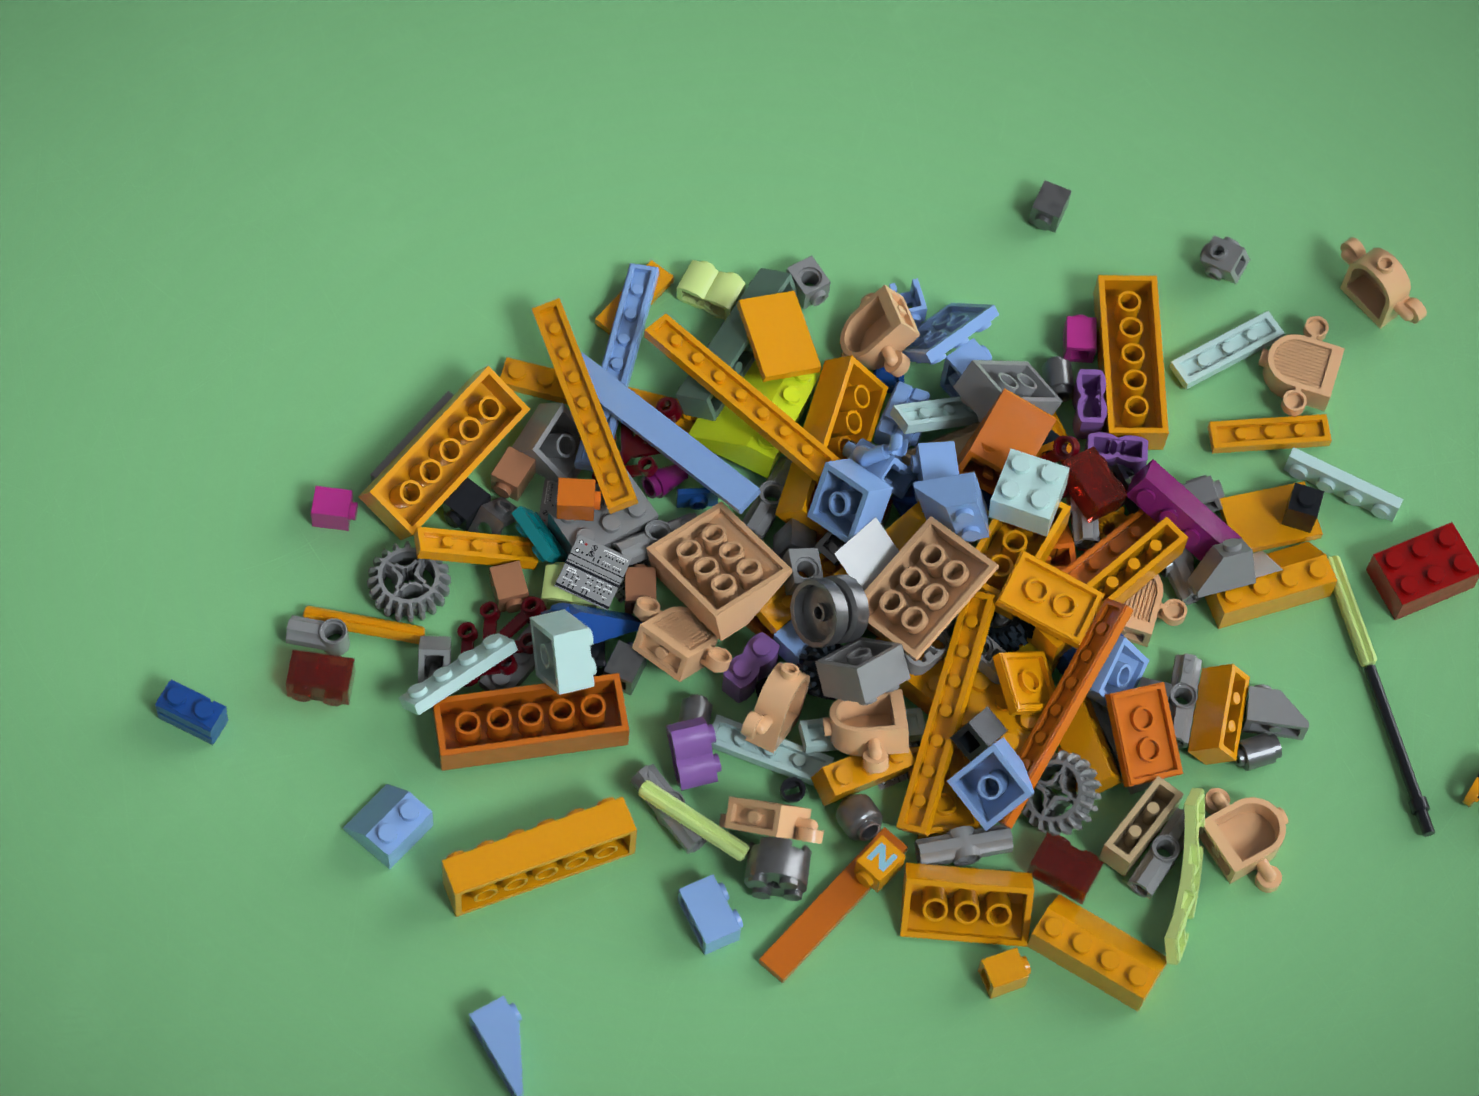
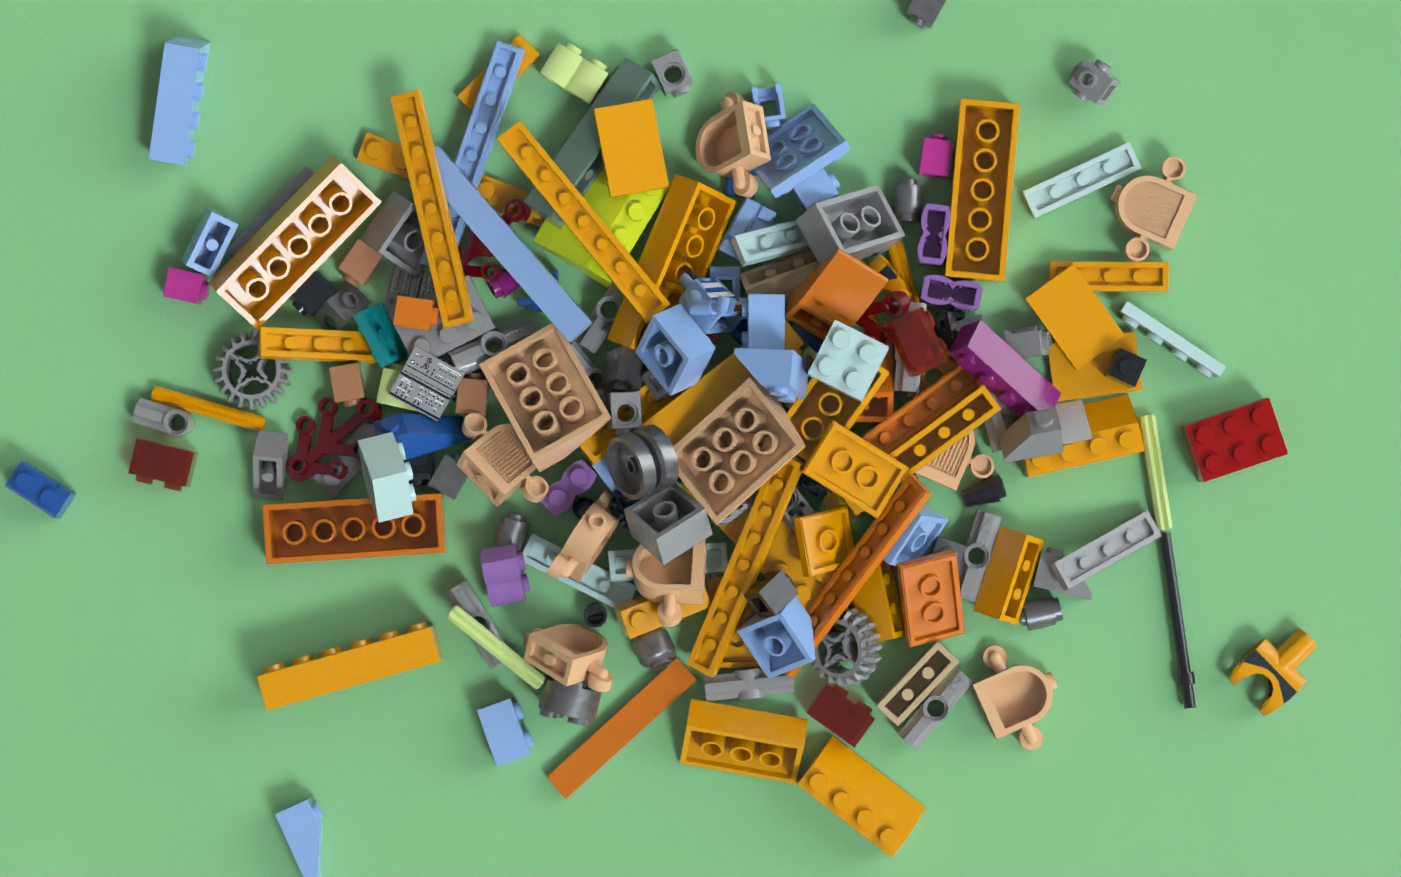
camera: 10 degrees right, 25 degrees up
(314, 336) = (178, 100): none -> light blue wedge
(356, 460) = (209, 242): none -> light blue brick
(390, 824) = (216, 615): light blue slope -> none
(458, 673) = (289, 481): light aqua plate -> none
(867, 553) = (687, 405): white sticker -> none
(879, 864) = (664, 701): light orange brick -> none
(1004, 972) = (770, 811): light orange brick -> none
(1180, 640) = (984, 491): none -> black cone
(1190, 877) = (955, 737): yellowish green tile -> none
(1244, 468) = (1074, 317): none -> light orange tile
(1314, 679) = (1105, 550): none -> light grey plate
(1379, 284) = (1244, 126): light nougat piece -> none

